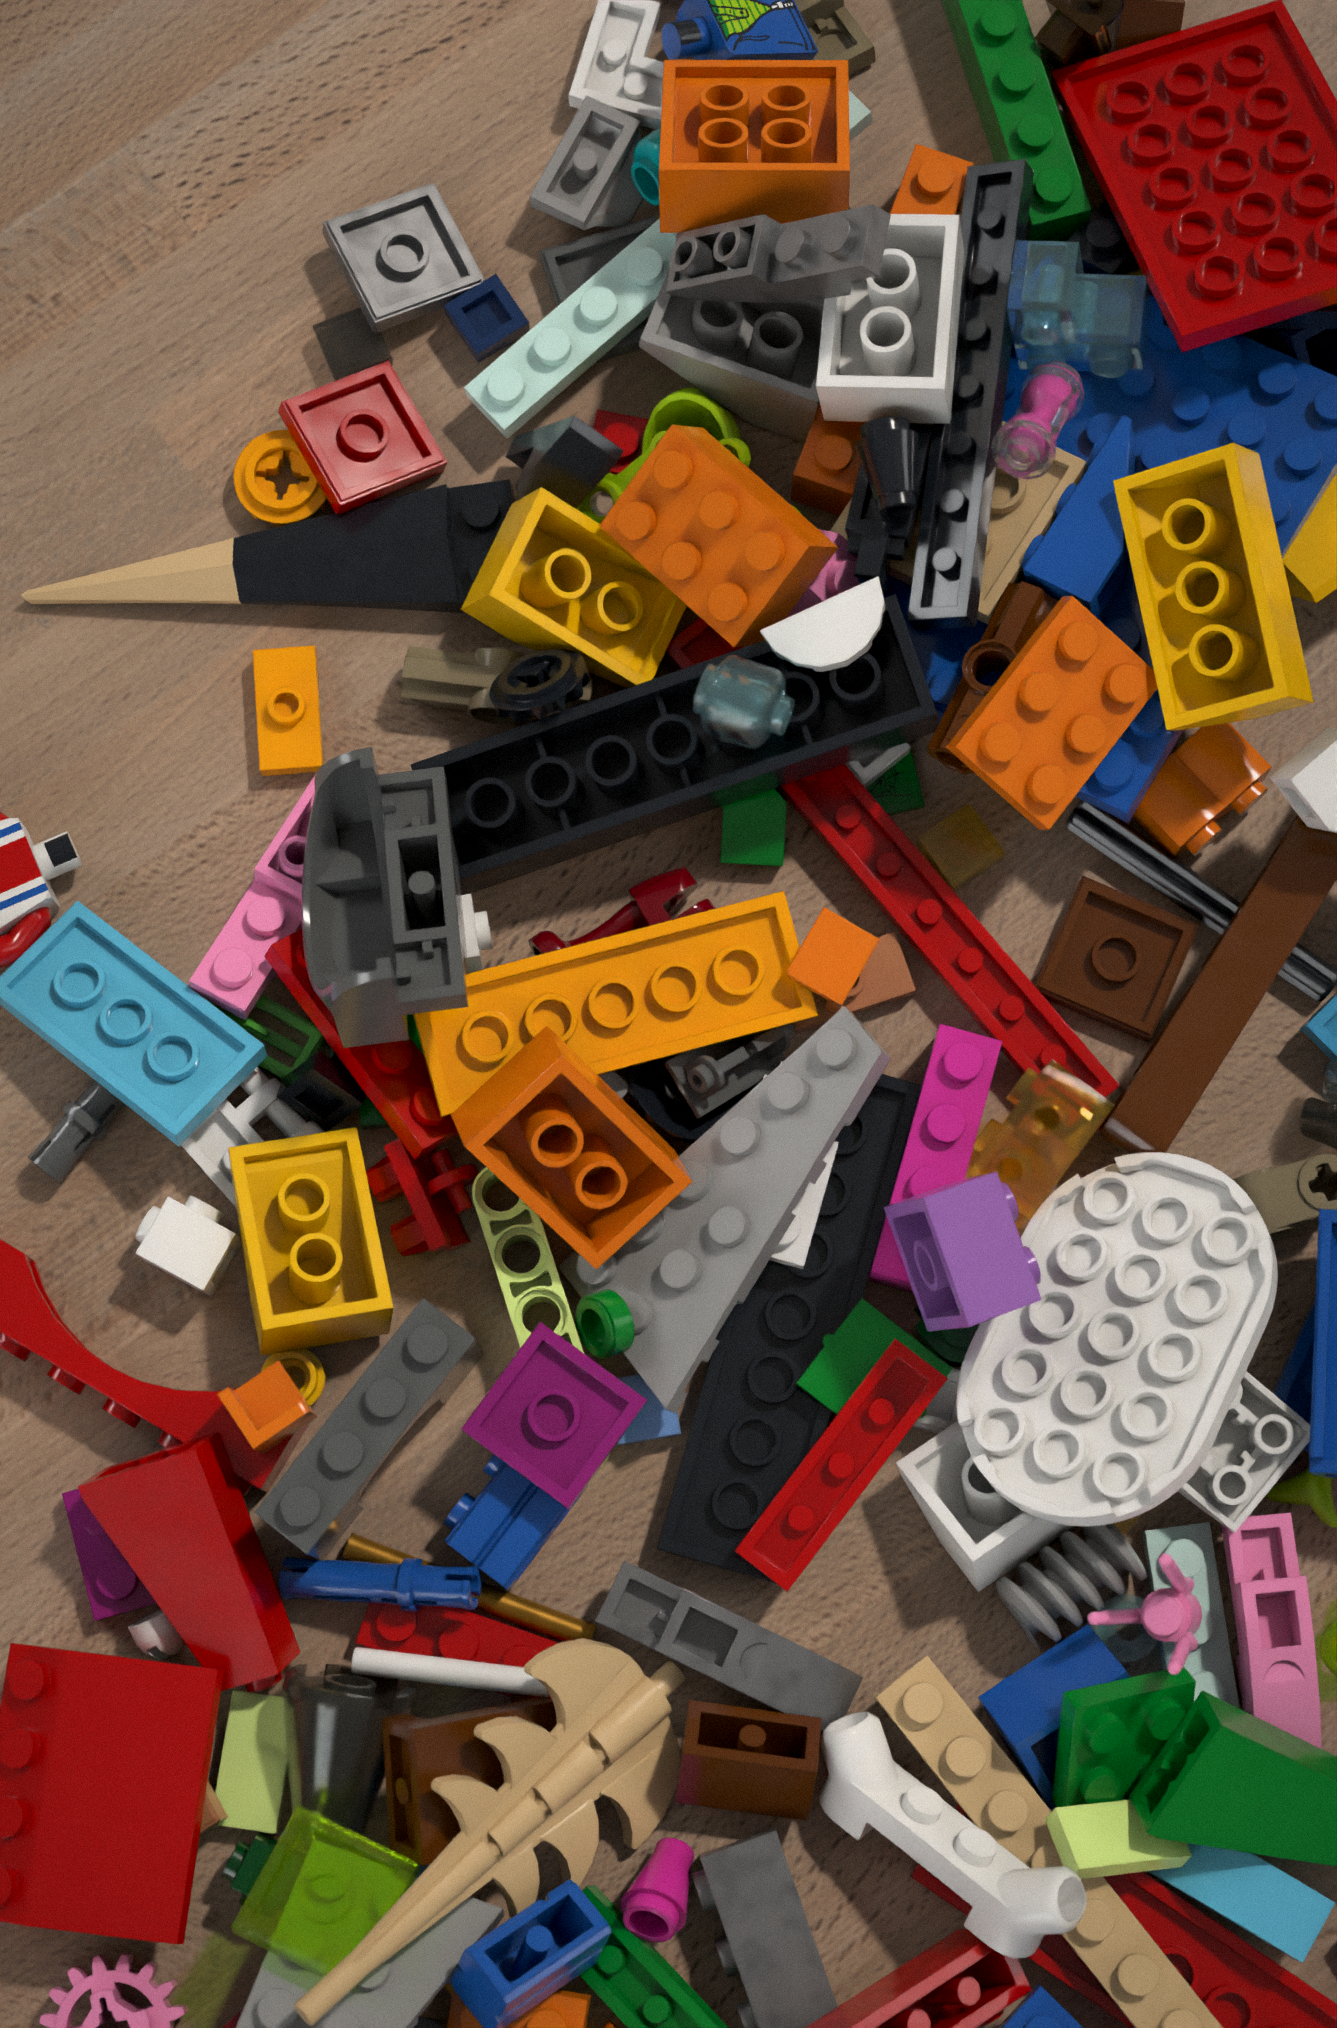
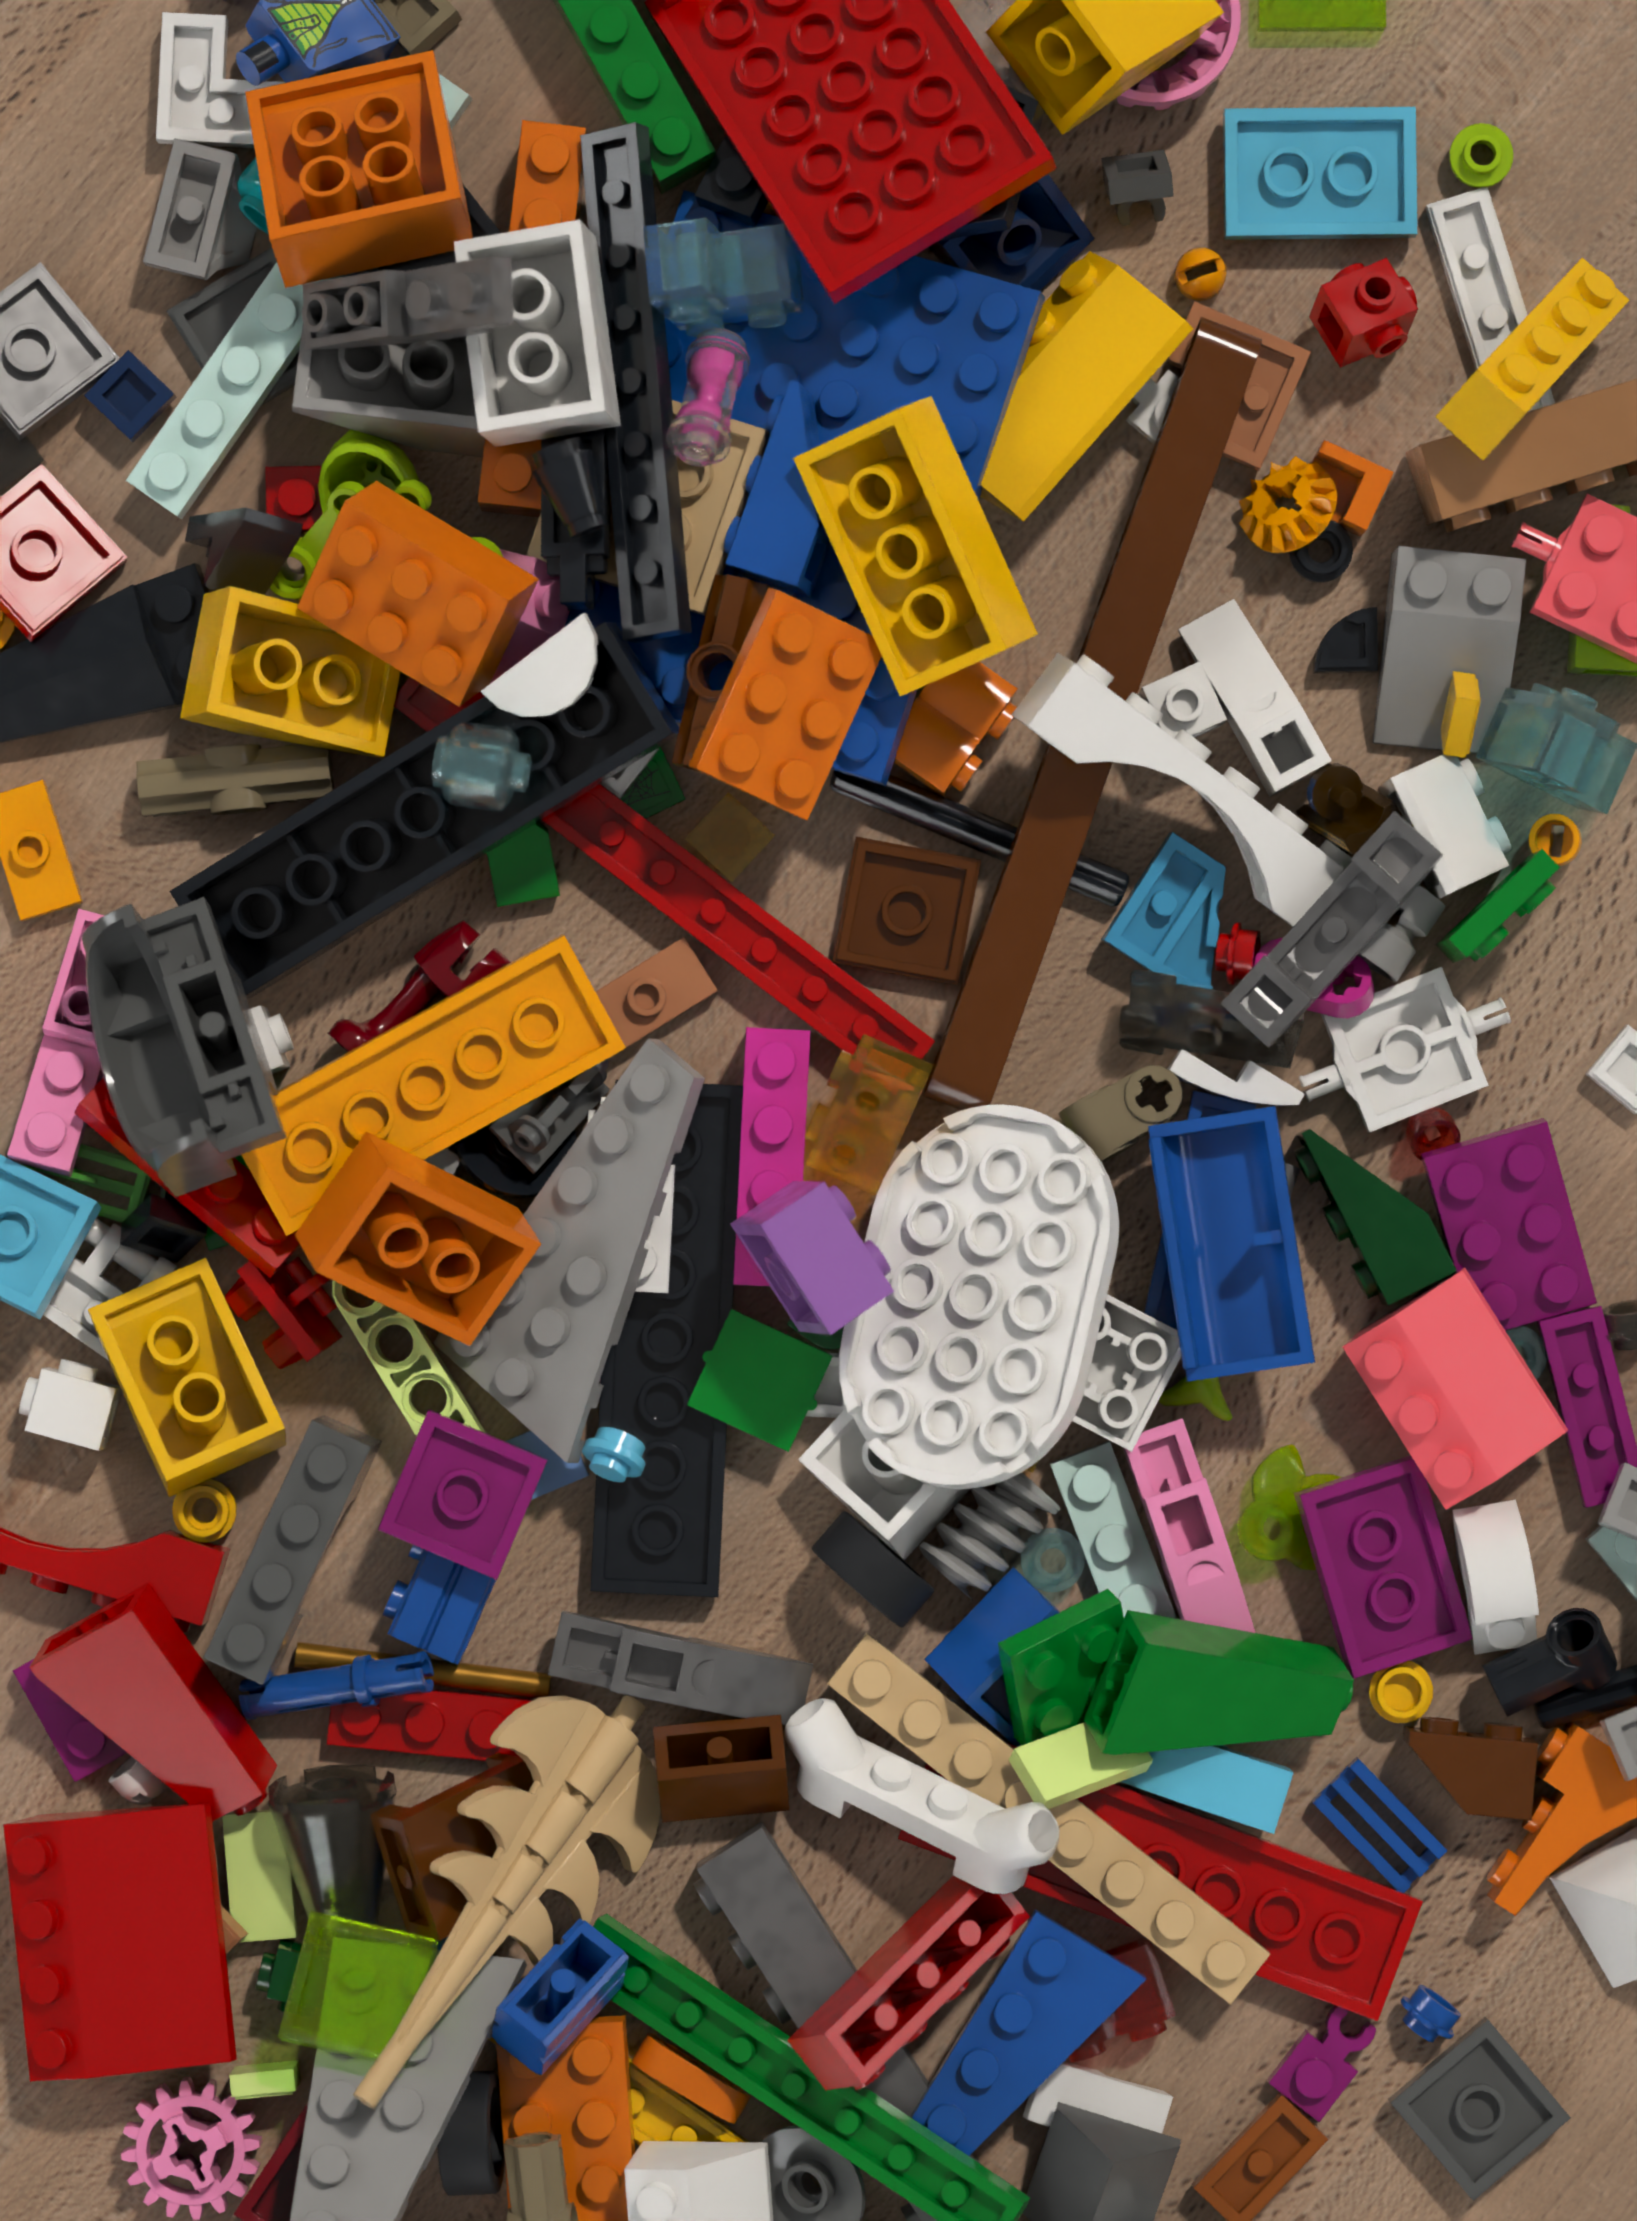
camera: 15 degrees left, 10 degrees up
(206, 1974) = (265, 2079): none -> yellowish green tile
(268, 1407) = (189, 1550): orange panel -> none
(445, 1671) = (414, 1753): white bar -> none
(539, 684) = (269, 768): black gear -> none
(604, 1324) = (490, 1394): green tile -> none
(659, 1895) = (667, 1910): dark pink cone -> none
(714, 1413) = (614, 1454): none -> medium azure plate
(832, 958) = (626, 989): orange panel -> none
(841, 1465) = (745, 1475): red plate -> none
(947, 1591) = (872, 1569): none -> black tyre
(1165, 1614) = (1083, 1544): bright pink plant -> none

